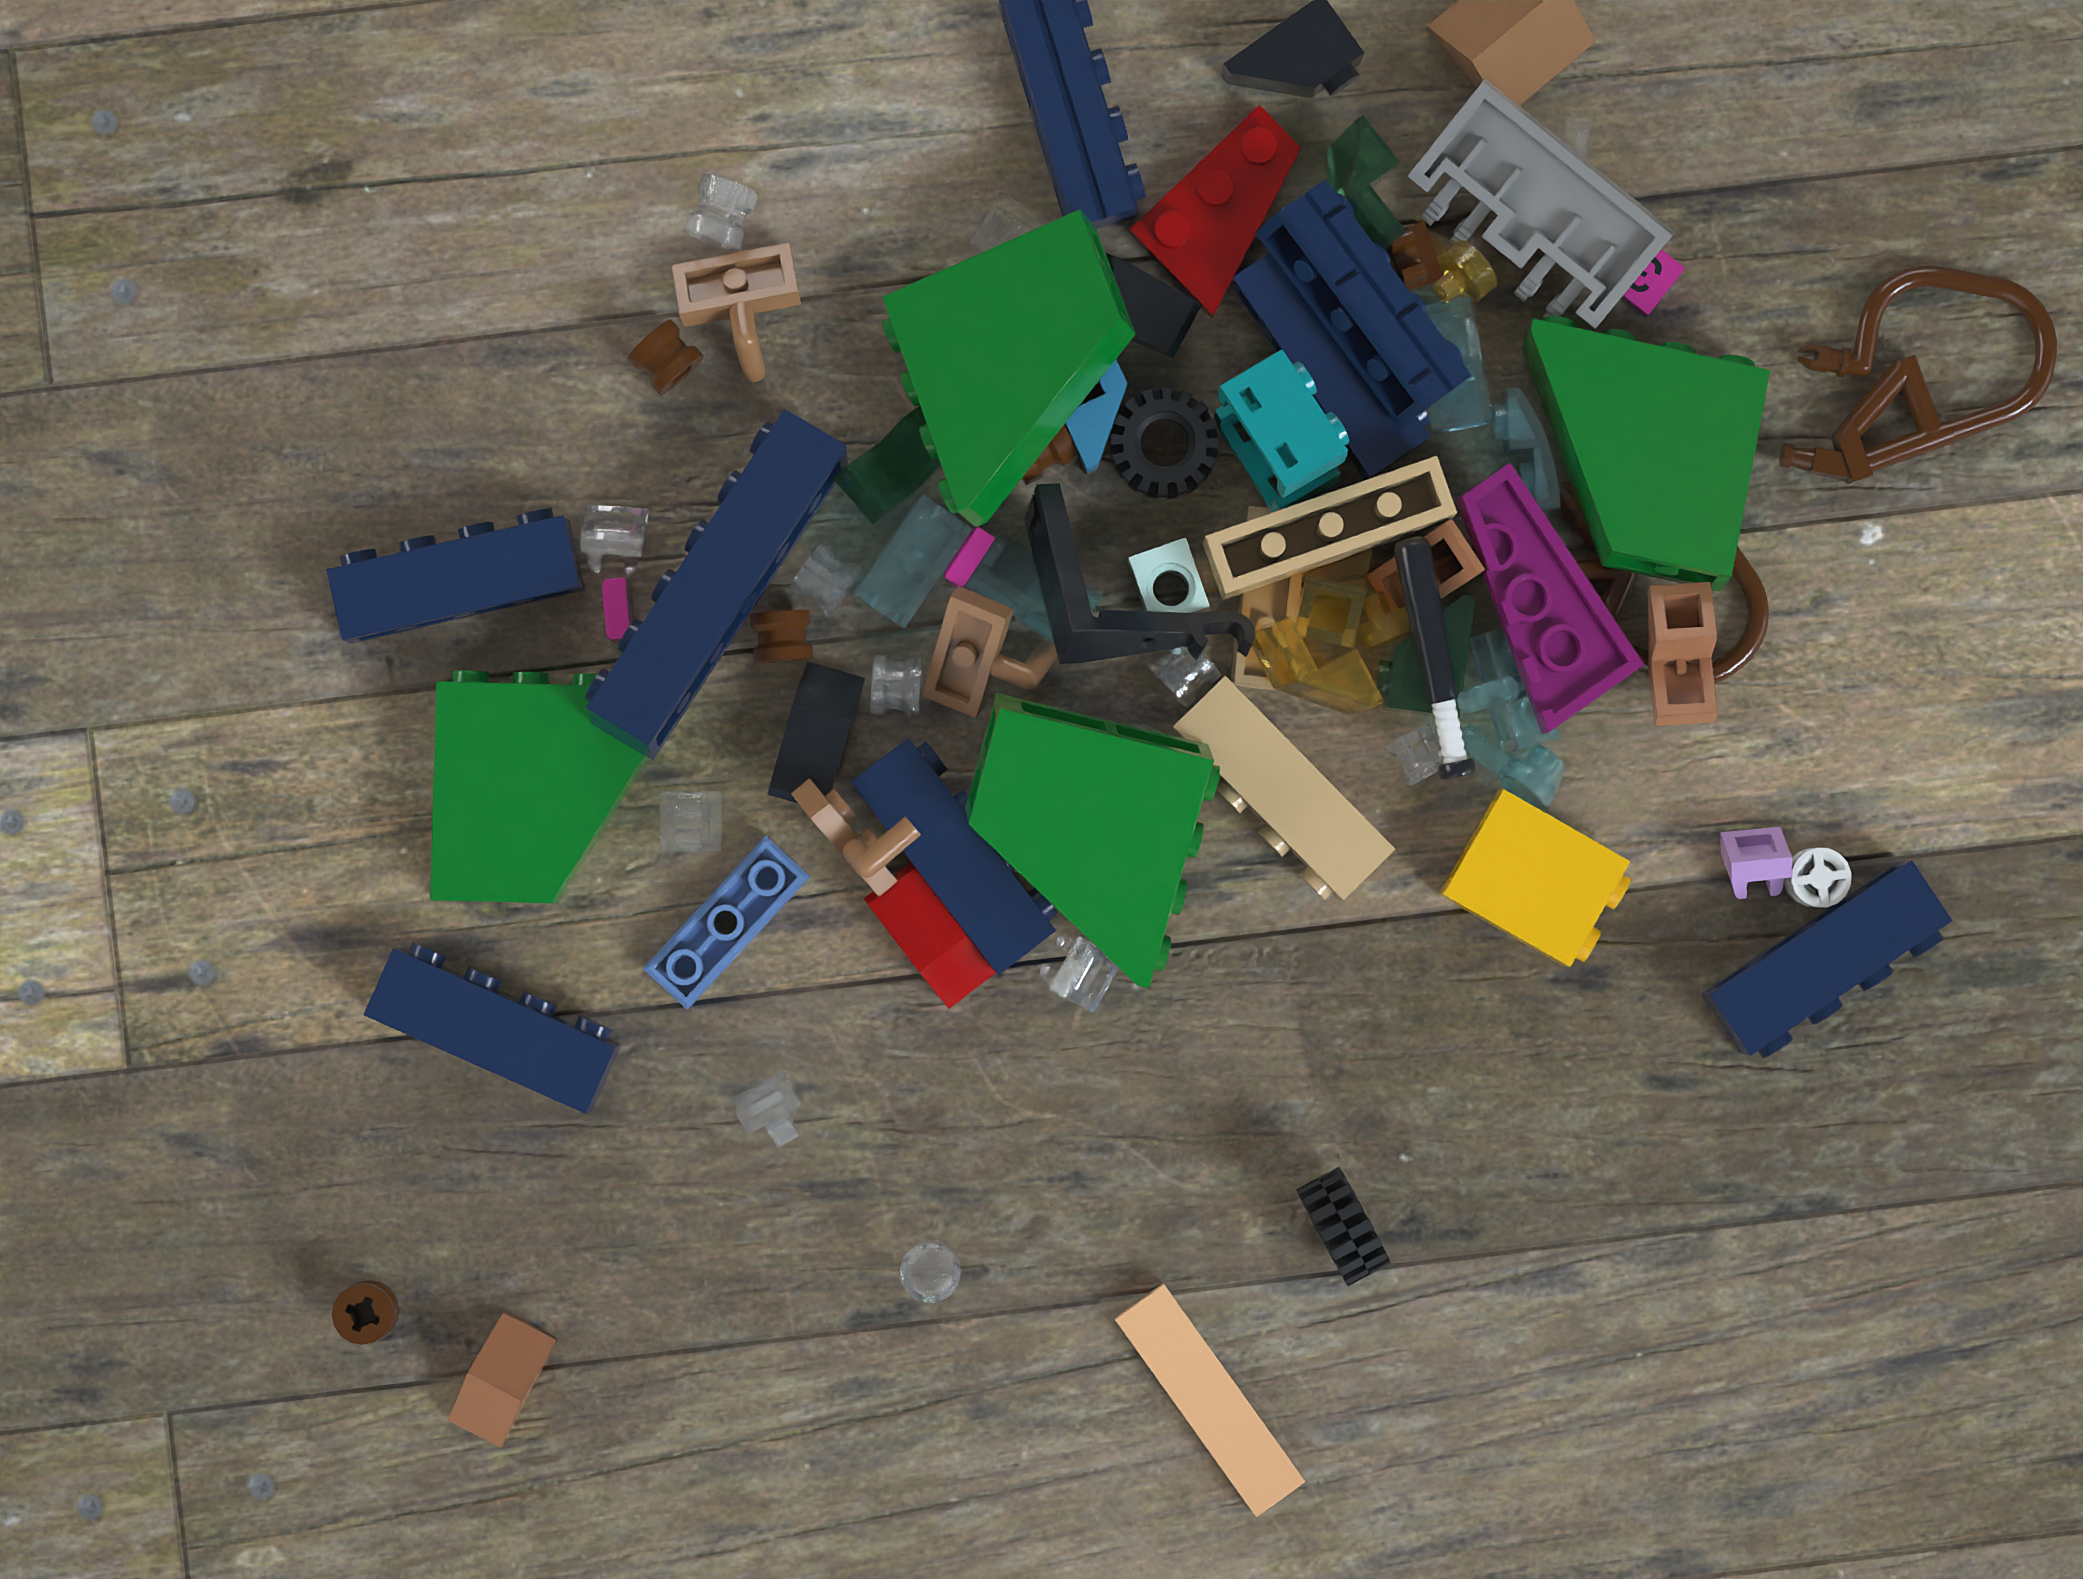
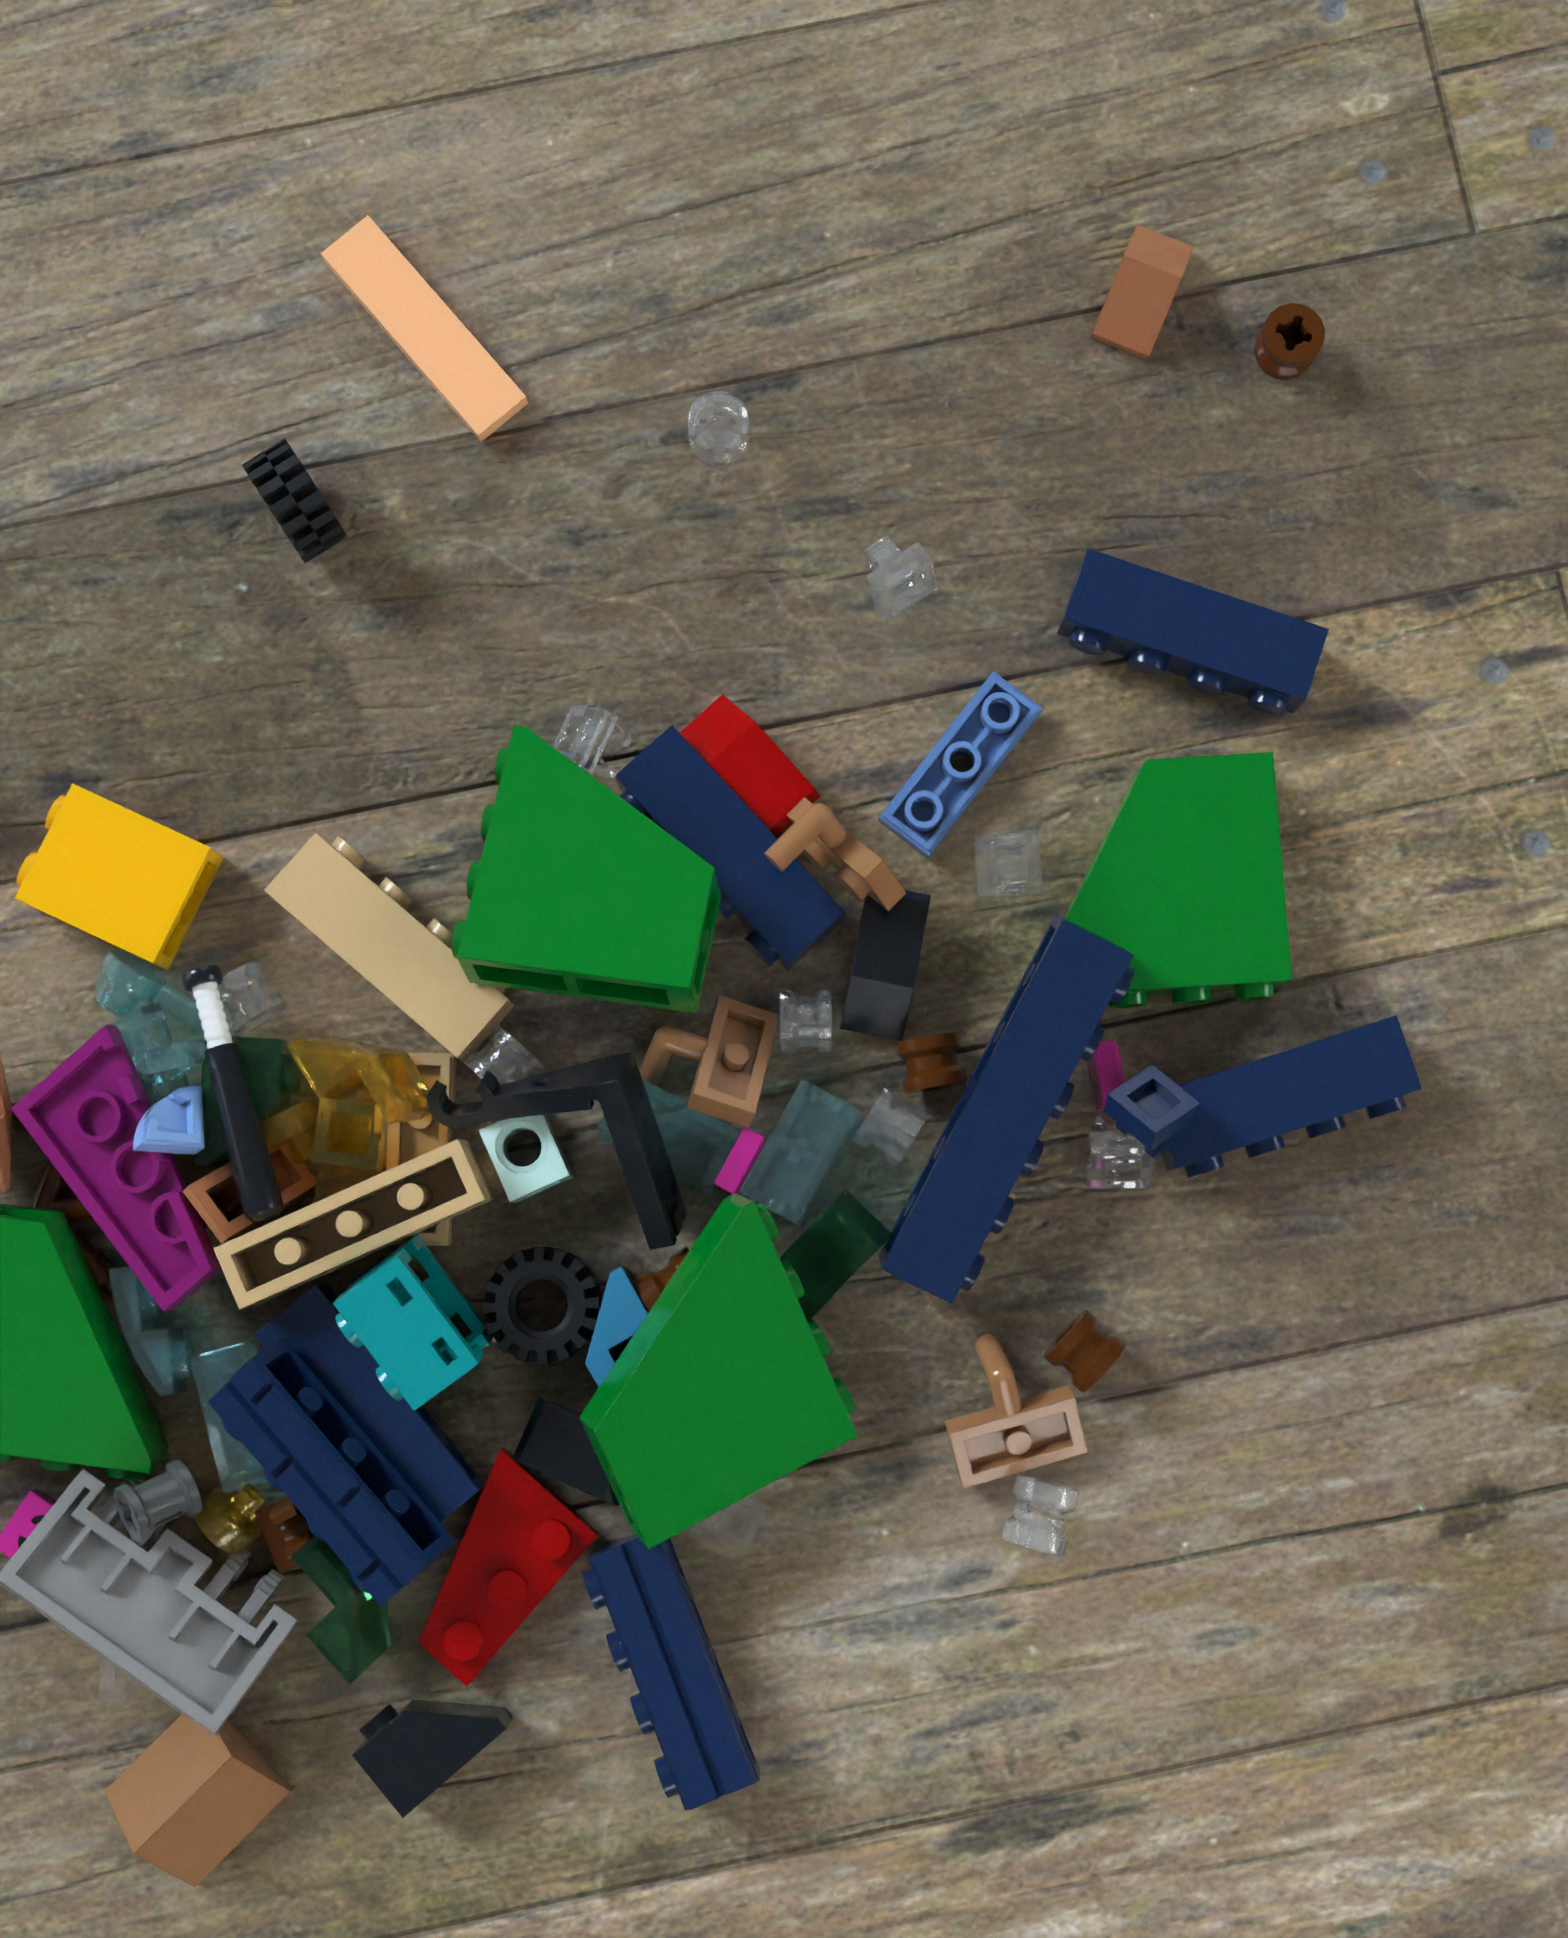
camera: 175 degrees right, 5 degrees down
(581, 568) = (1152, 1109): none -> dark blue tile
(1490, 634) = (173, 1124): none -> light blue tile
(1525, 292) = (158, 1501): none -> dark grey bush

